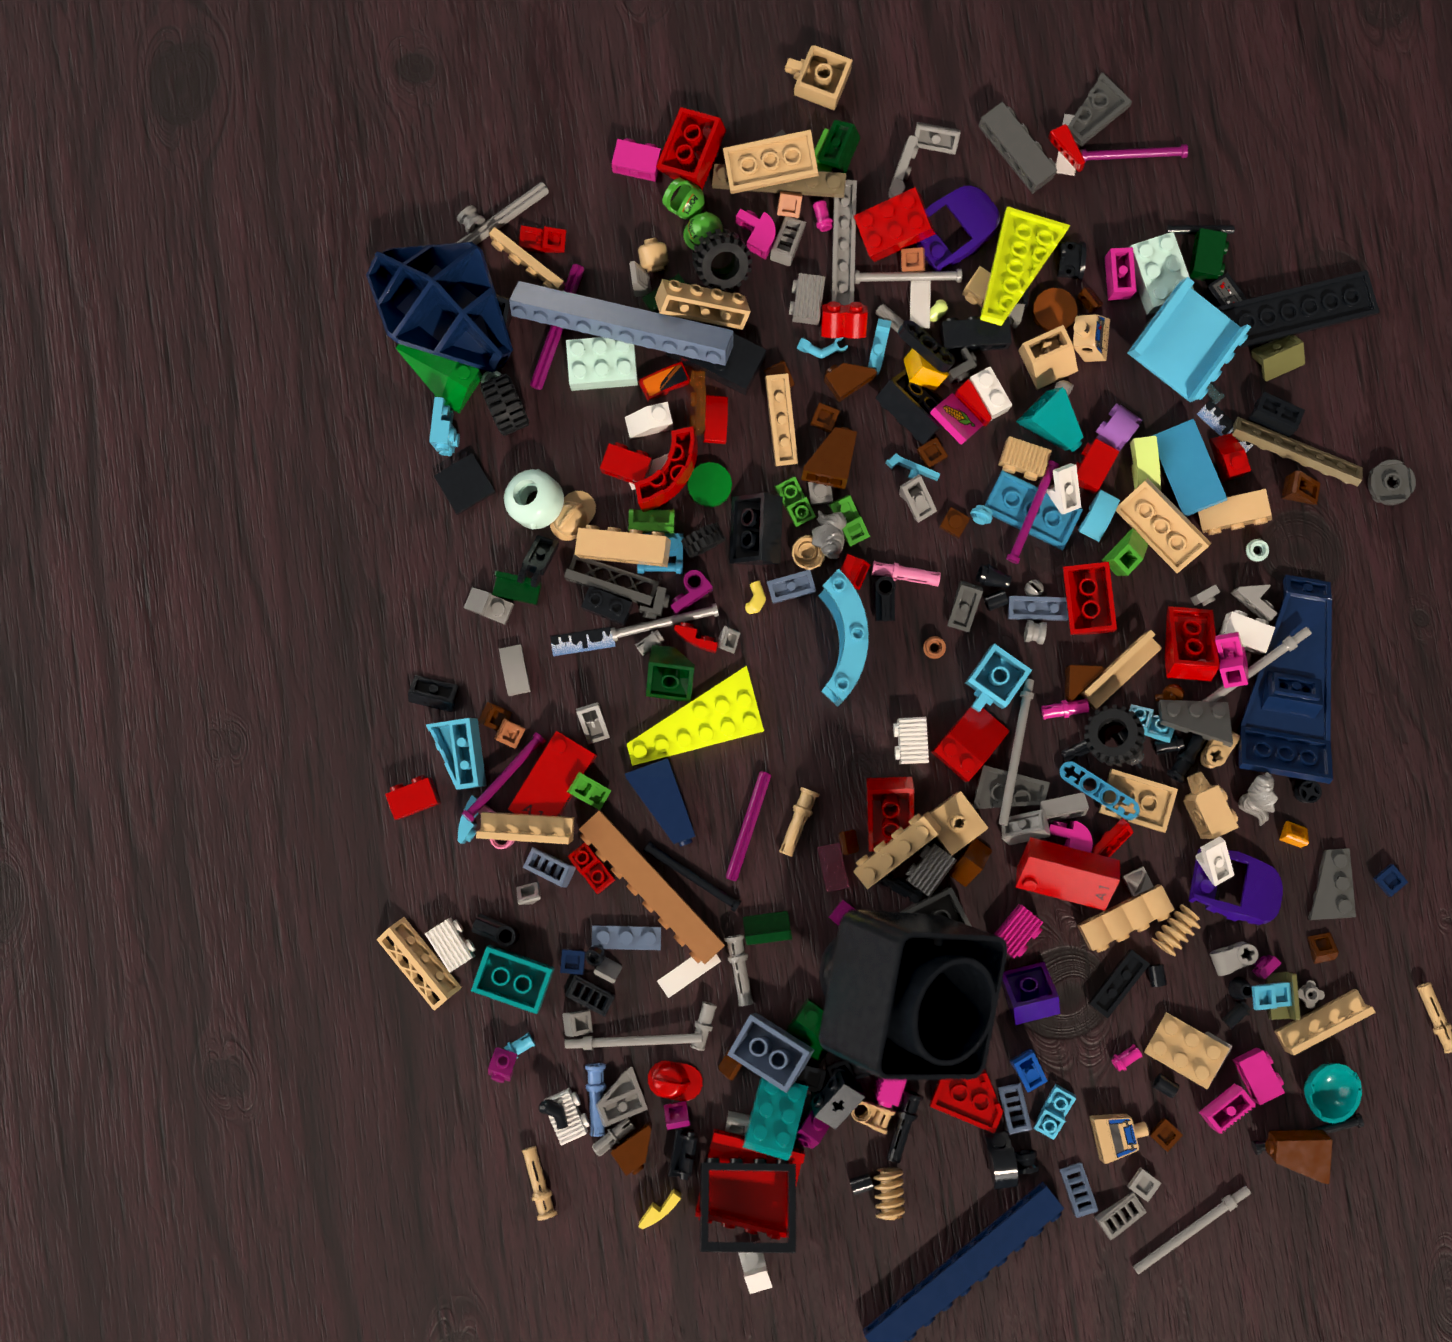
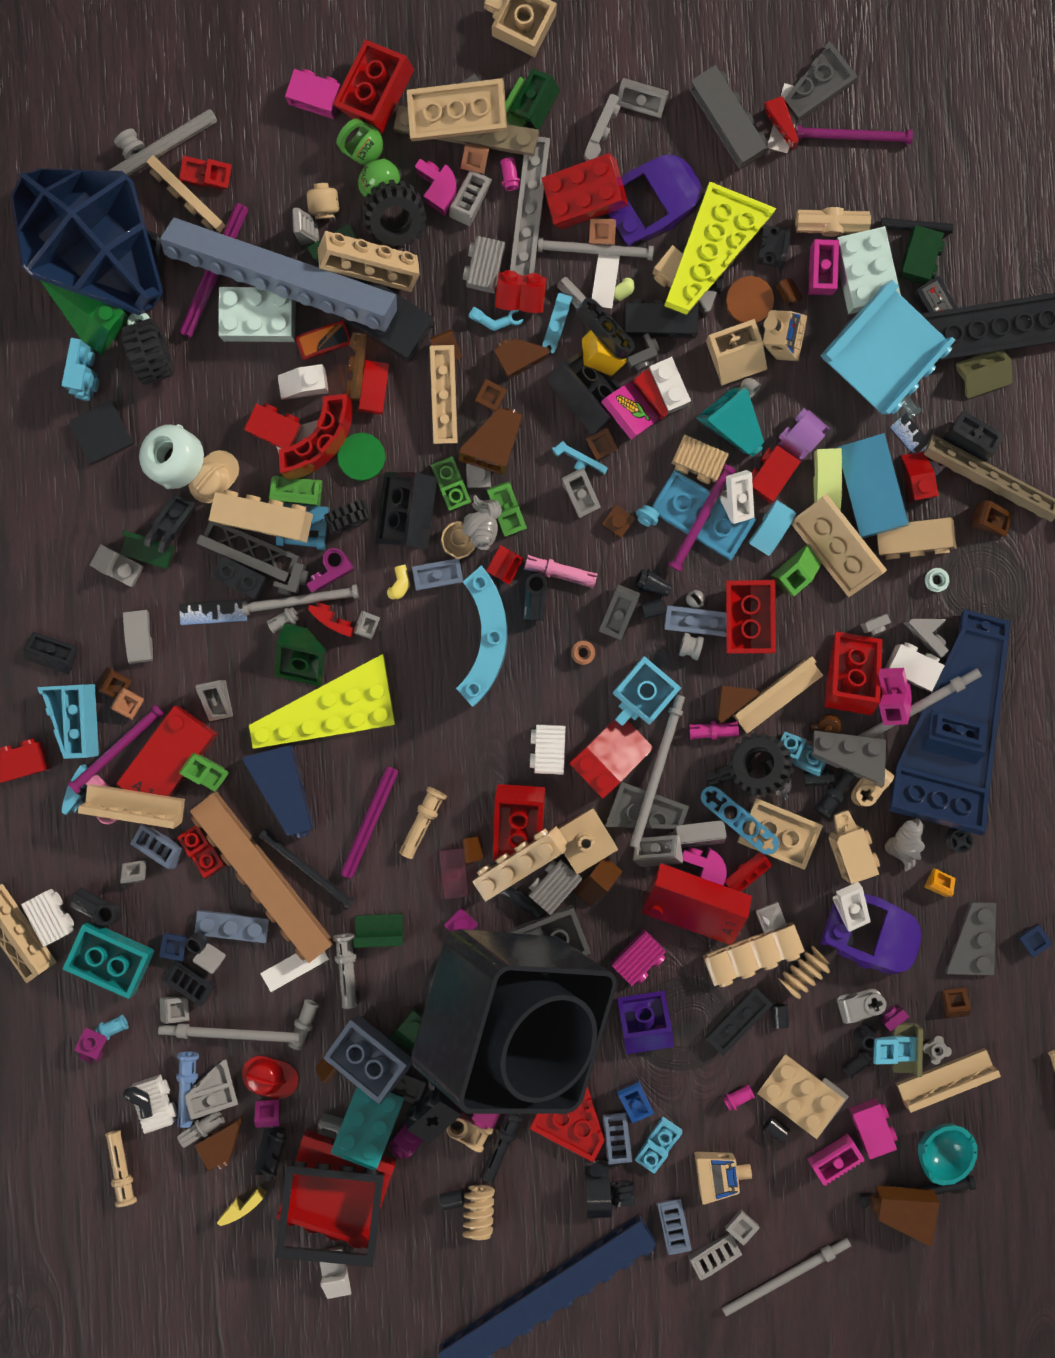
camera: 10 degrees right, 5 degrees up
(1122, 232) = (832, 221): none -> tan piece
(1165, 1134) = (770, 1179): reddish brown plate -> none

